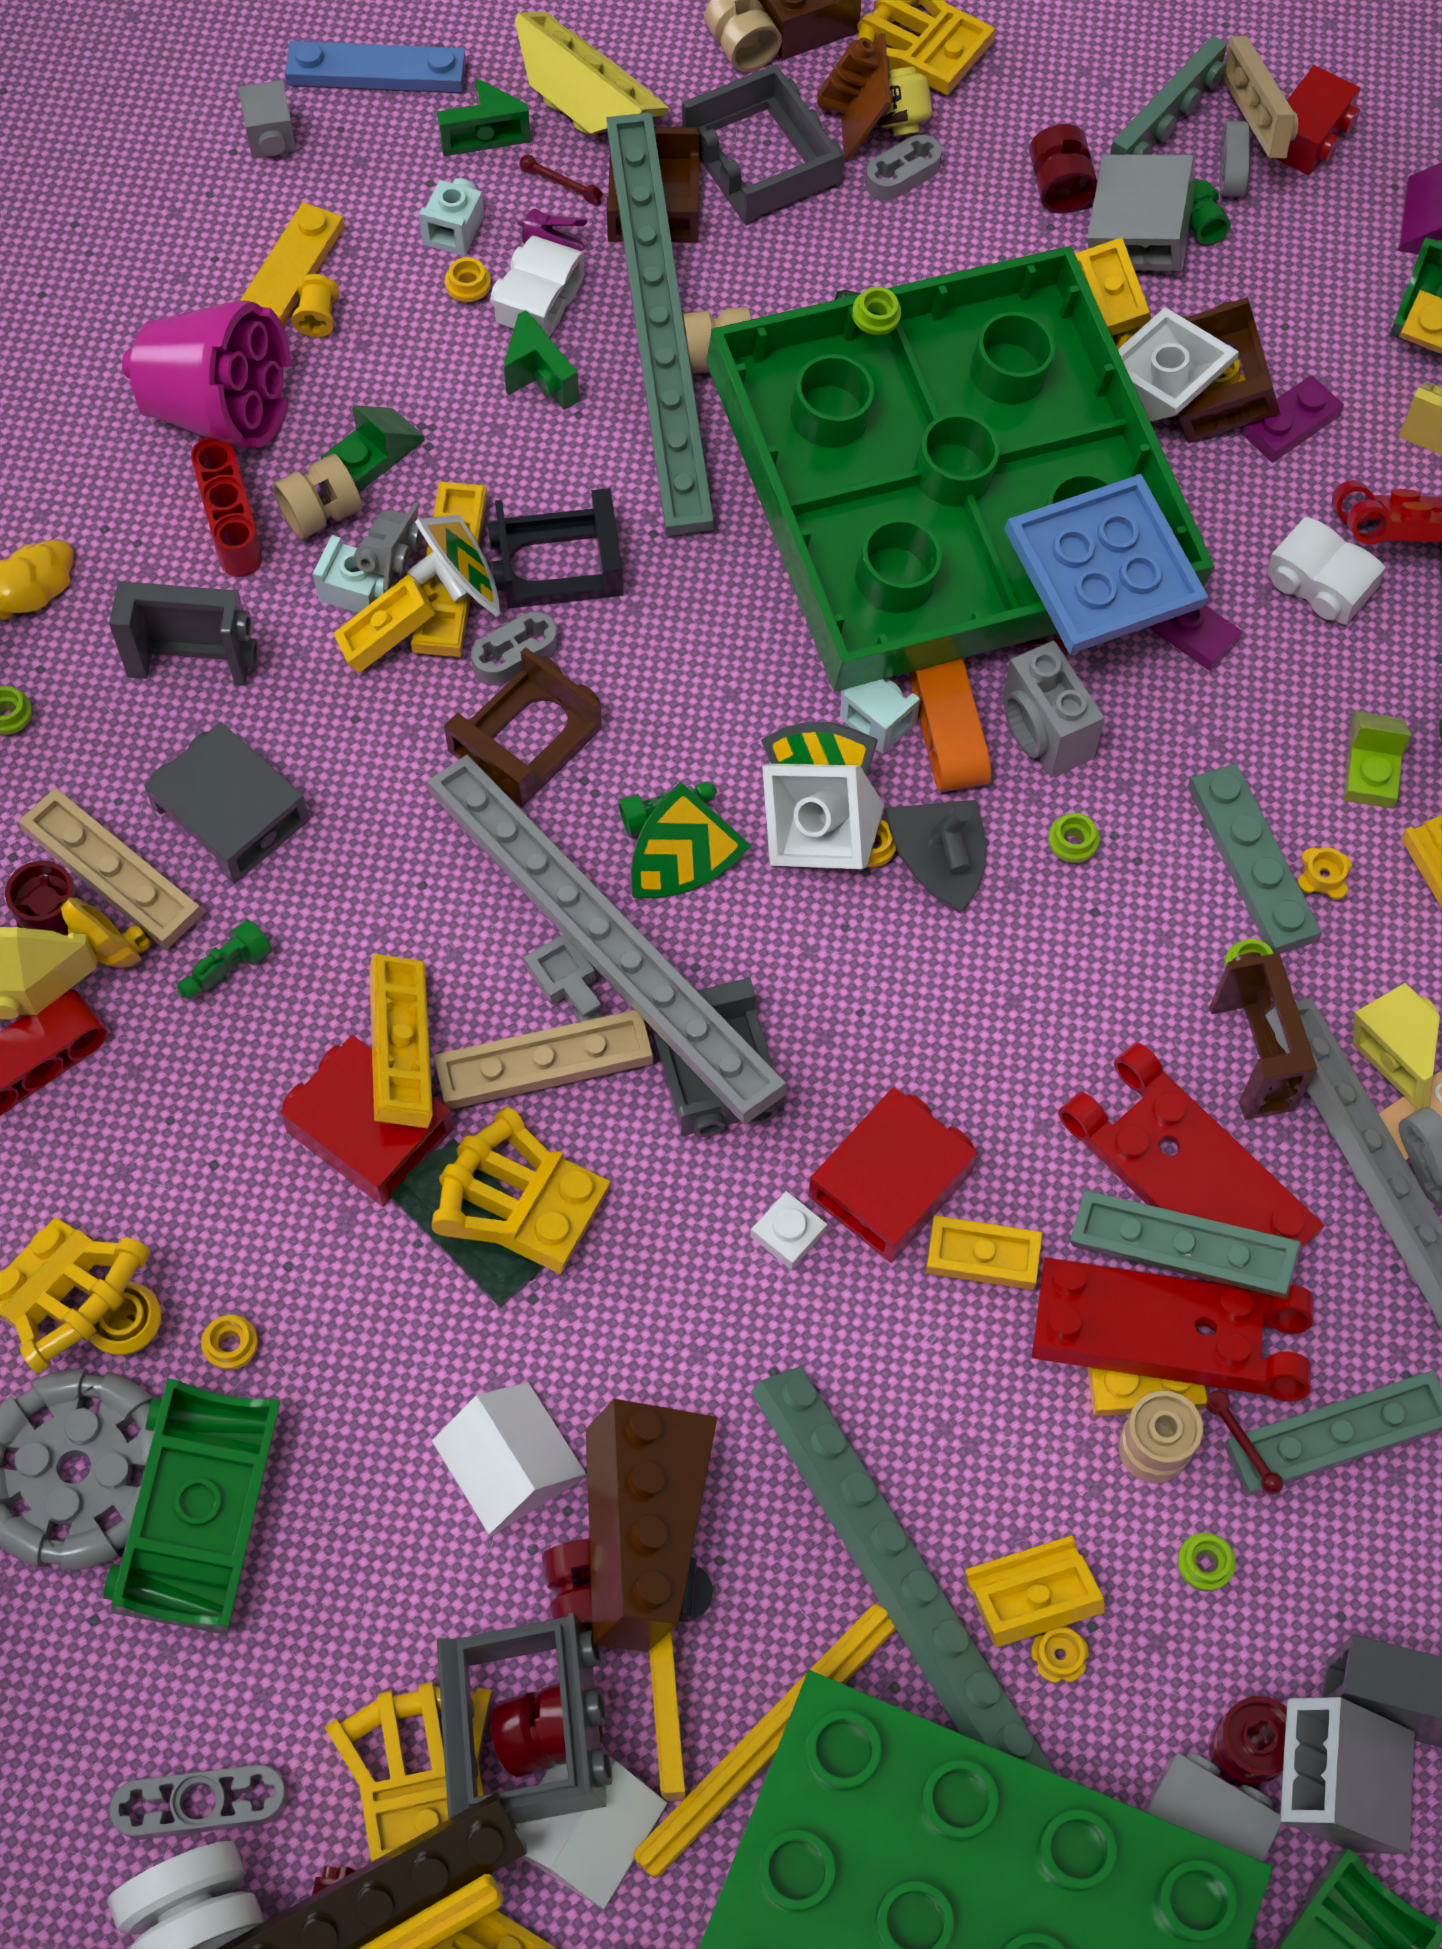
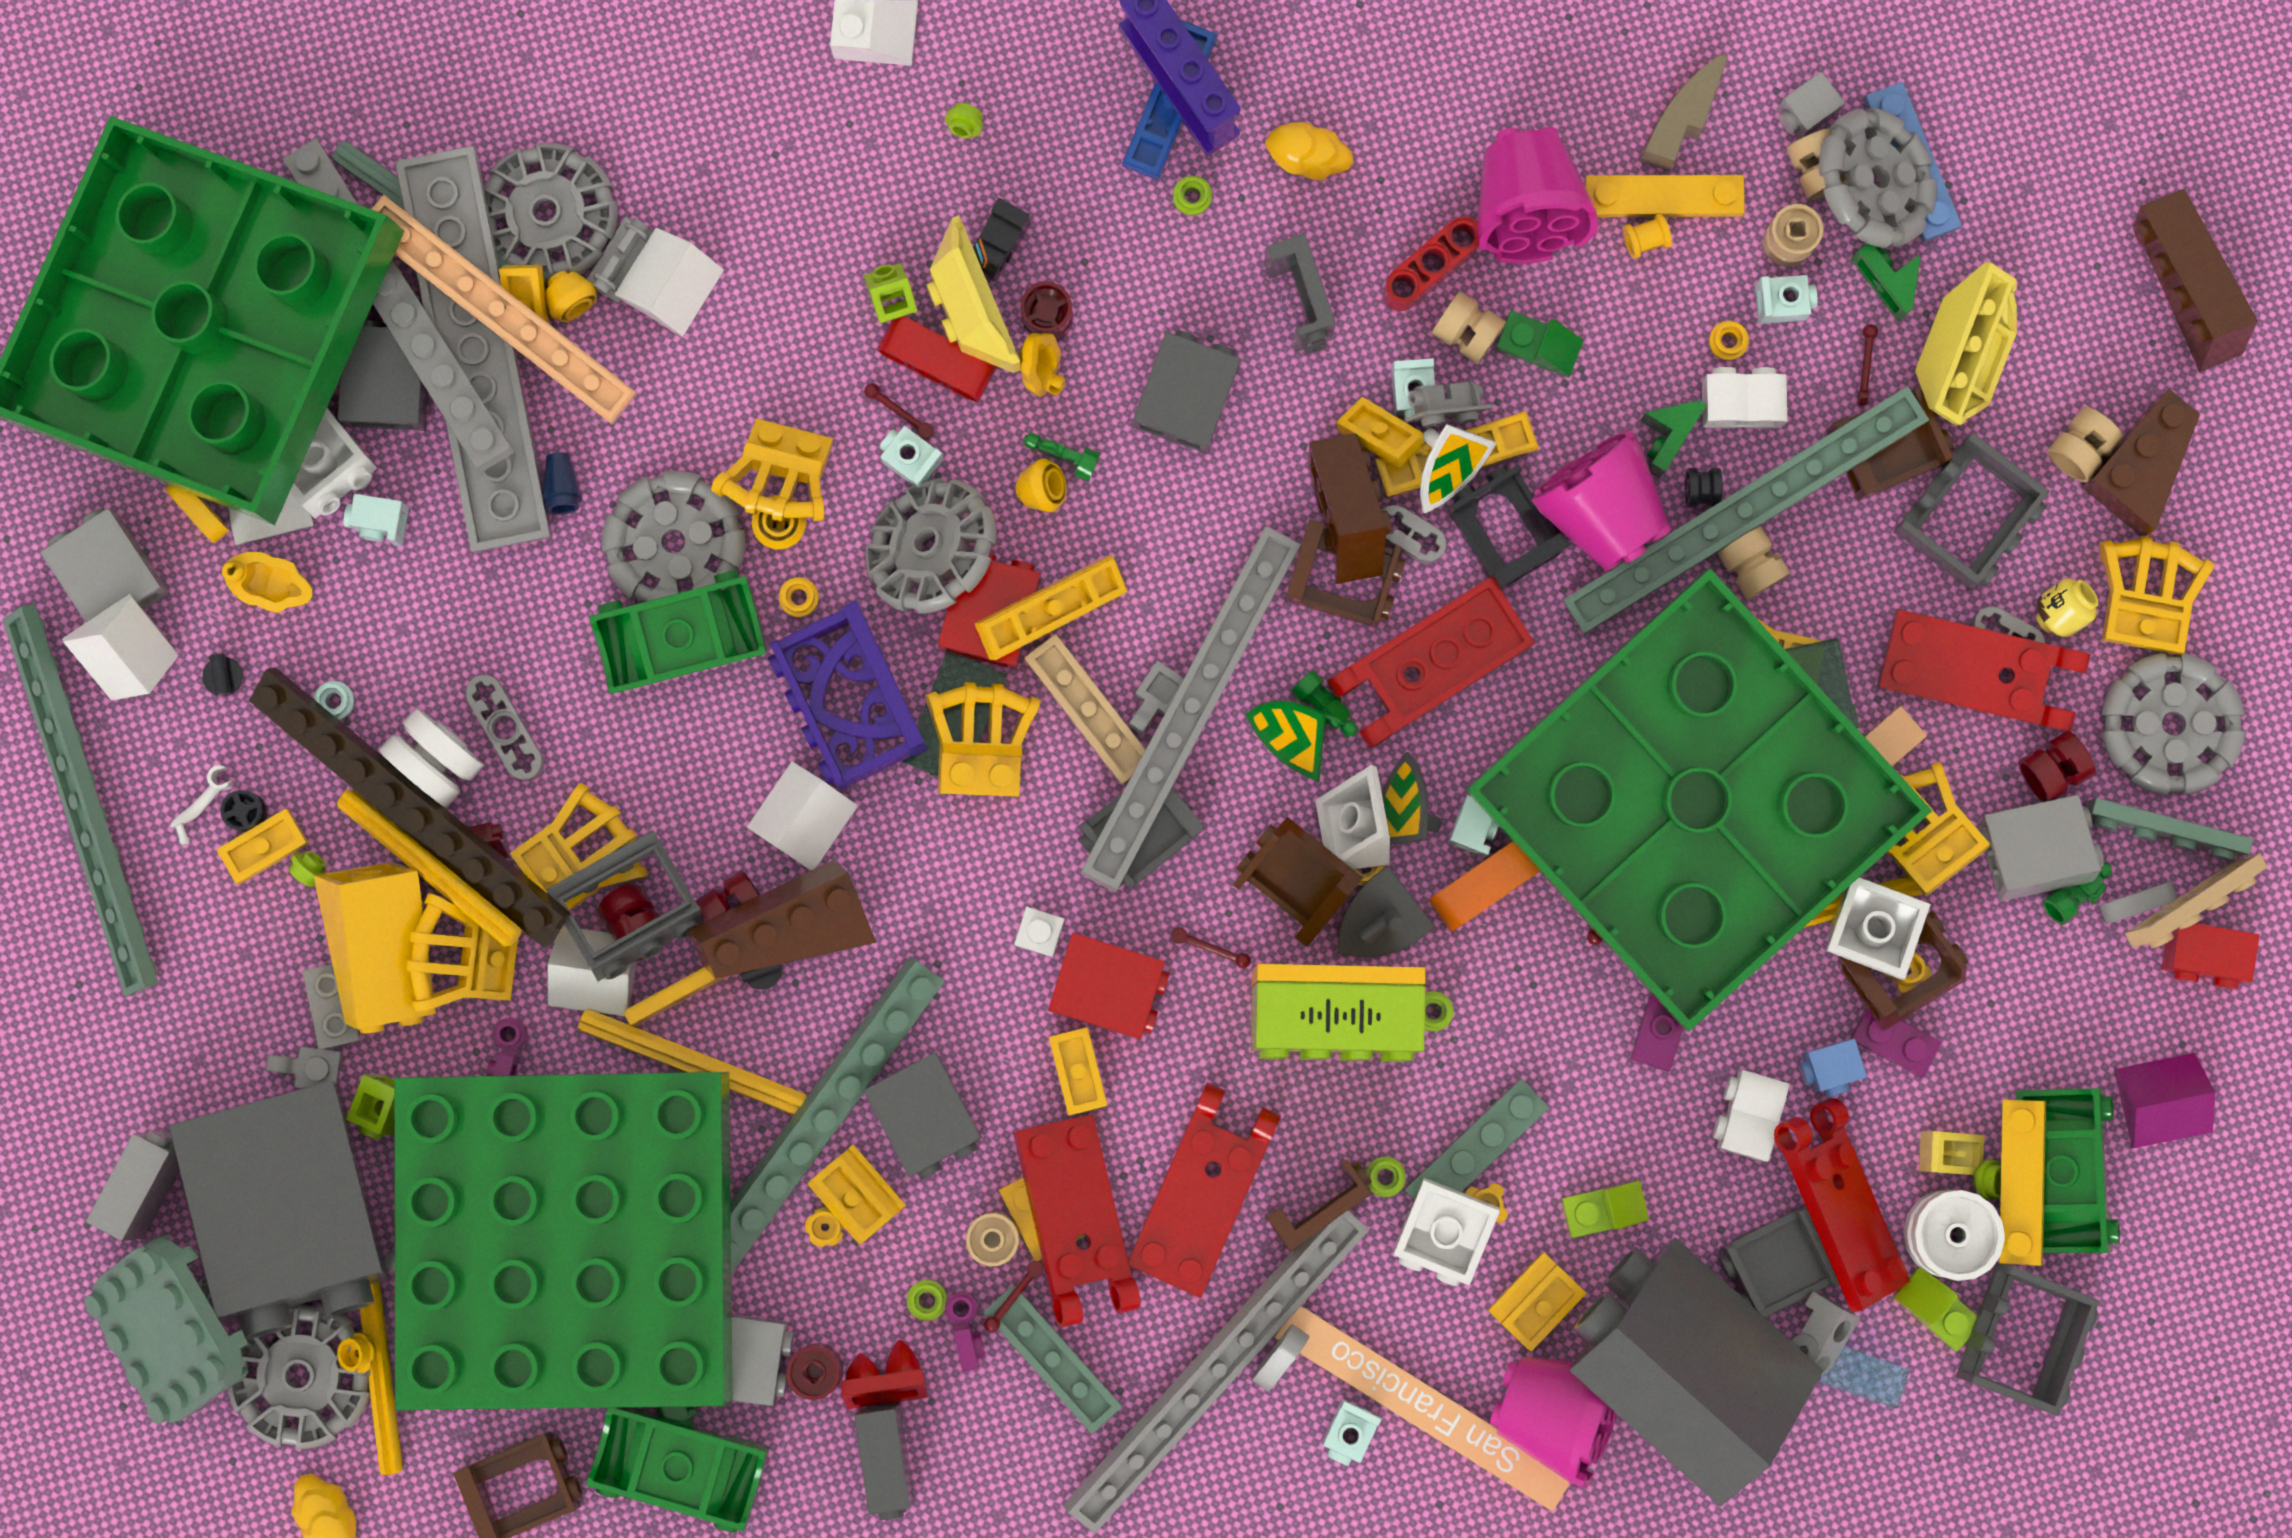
camera: 65 degrees right, 20 degrees up
(106, 1110) = (924, 429): none -> dark red hinge
(110, 868) = (1100, 337): tan plate -> none
(142, 1144) = (918, 468): none -> light aqua brick
(211, 227) = (1684, 115): none -> dark tan slope
(248, 1000) = (1042, 486): none -> yellow cone
(277, 1153) = (947, 555): none -> light grey plate
(348, 130) = (1805, 158): none -> tan wheel
(375, 79) = (1862, 202): none -> light grey plate
(391, 178) = (1793, 235): none -> tan wheel
(403, 1273) = (855, 643): none -> dark purple fence
(452, 673) = (1350, 506): none -> reddish brown wedge
(542, 225) = (1806, 374): magenta piece -> none
(579, 432) = (1606, 501): none -> dark pink cone
(611, 356) = (1703, 487): none -> black wheel
(667, 656) = (1448, 651): none -> red hinge
(858, 91) = (2060, 569): dark orange hinge -> none
(859, 901) = (1298, 876): none -> reddish brown panel
(864, 1073) = (1180, 936): none -> dark red hinge
(876, 300) = (1796, 684): lime plate -> none
(915, 212) = (1963, 667): none -> red hinge
(965, 1461) = (924, 1116): none -> dark grey brick
(1043, 901) = (1338, 1011): none -> lime piece
(1051, 710) = (1524, 953): light grey brick -> none
(1064, 46) = (2195, 716): none -> light grey plate
(1105, 563) = (1641, 950): medium blue plate -> none
(1186, 1244) = (1138, 1206): sand green plate -> none
(1282, 1530) = (969, 1345): none -> magenta plate
(1300, 476) = (1832, 1067): none -> medium blue brick
(1305, 1637) = (900, 1383): none -> red tile
(1347, 918) = (1445, 1233): none -> white plate
(1347, 1775) = (811, 1436): light grey brick -> none
(1400, 1041) = (1364, 1307): light yellow slope -> none

